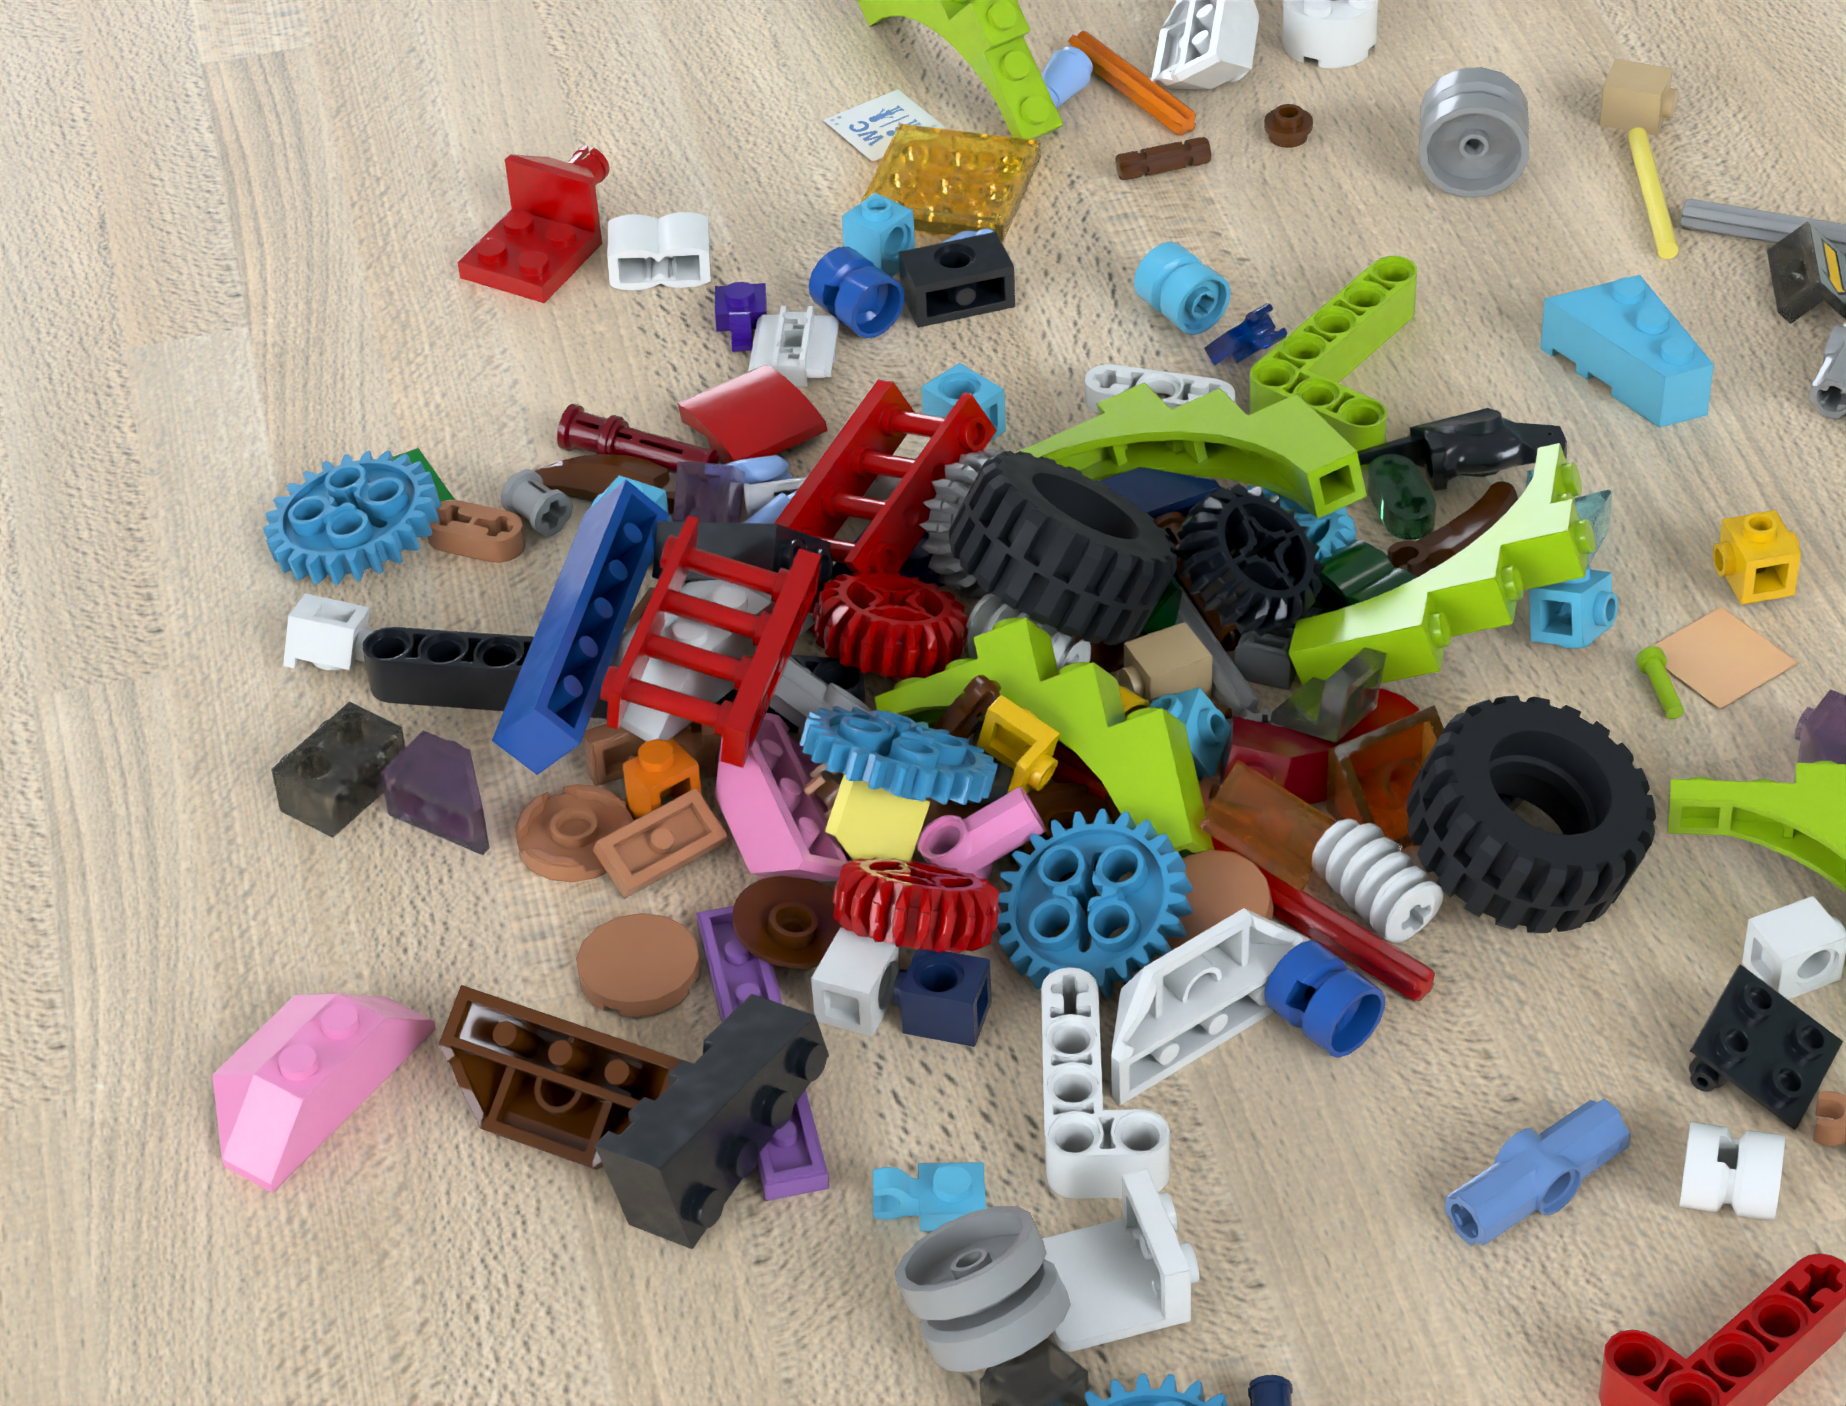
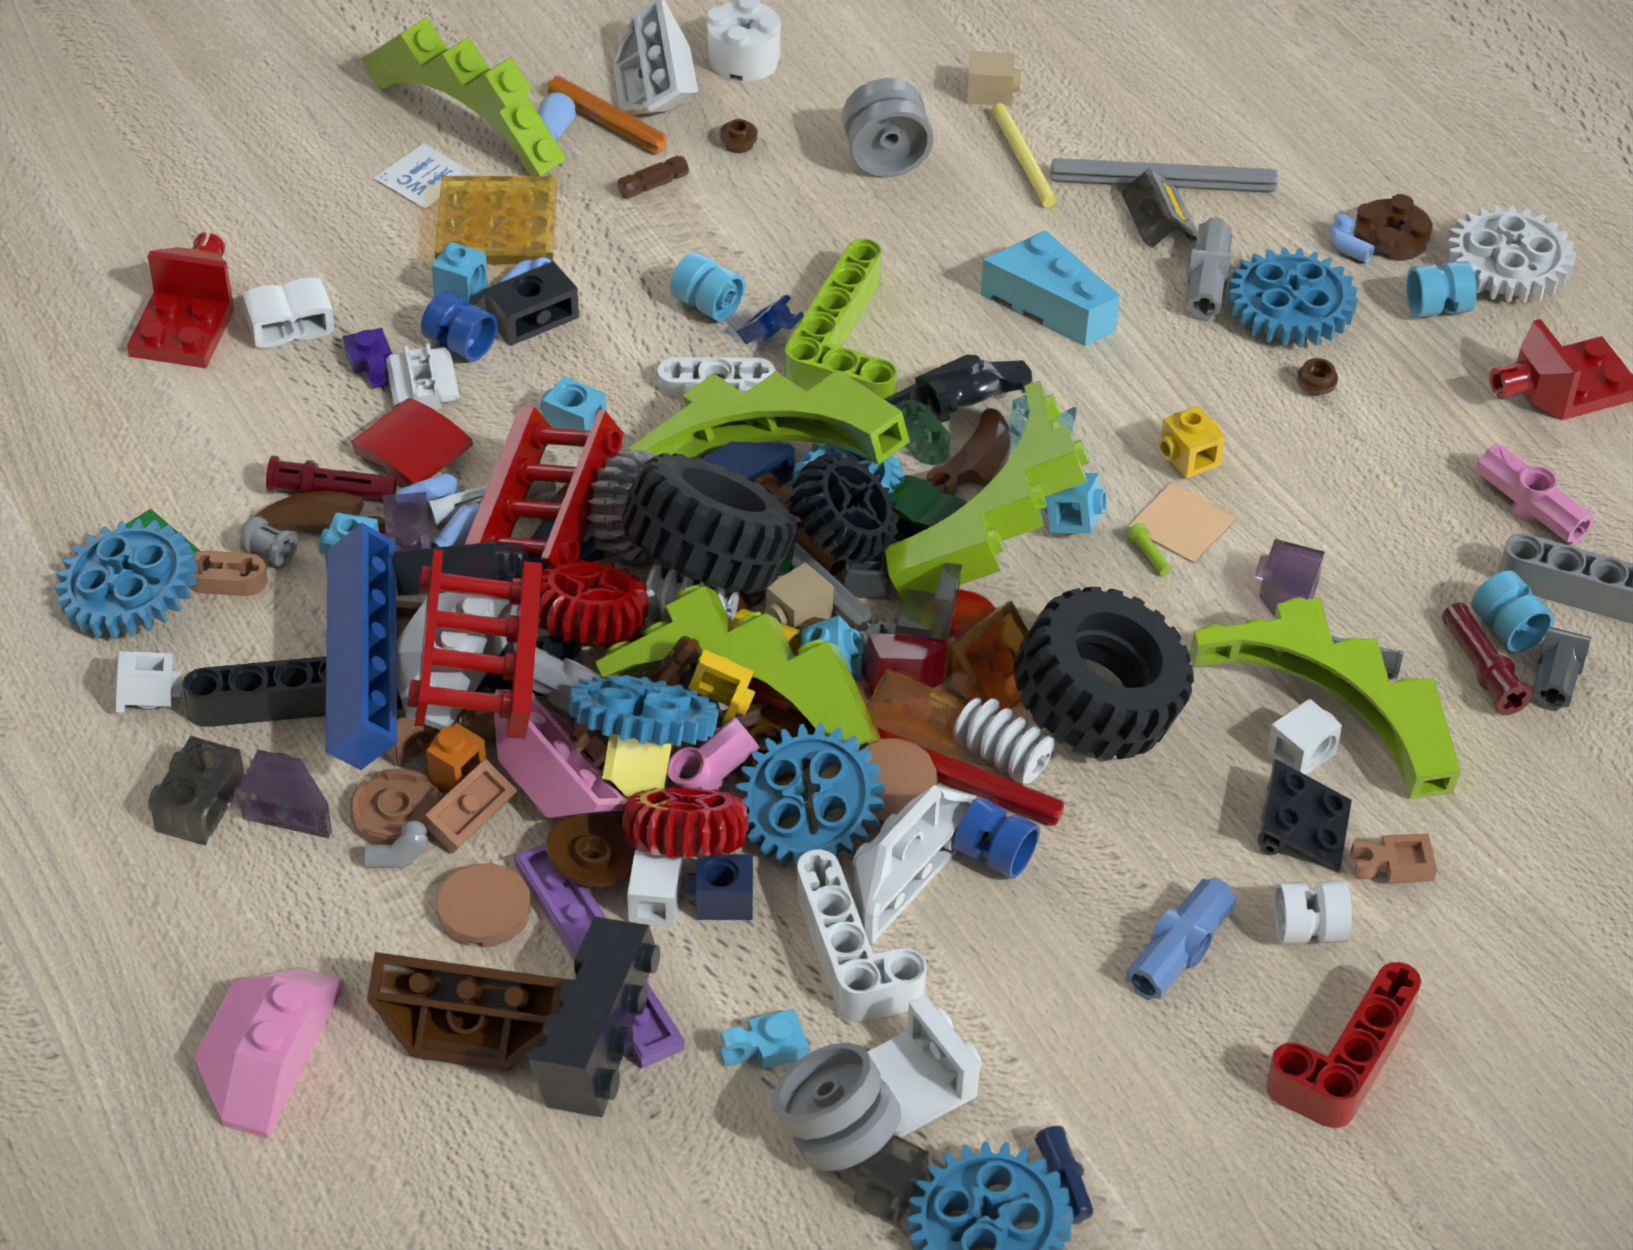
camera: 20 degrees left, 5 degrees up
(561, 882) = (402, 851): none -> light grey arm

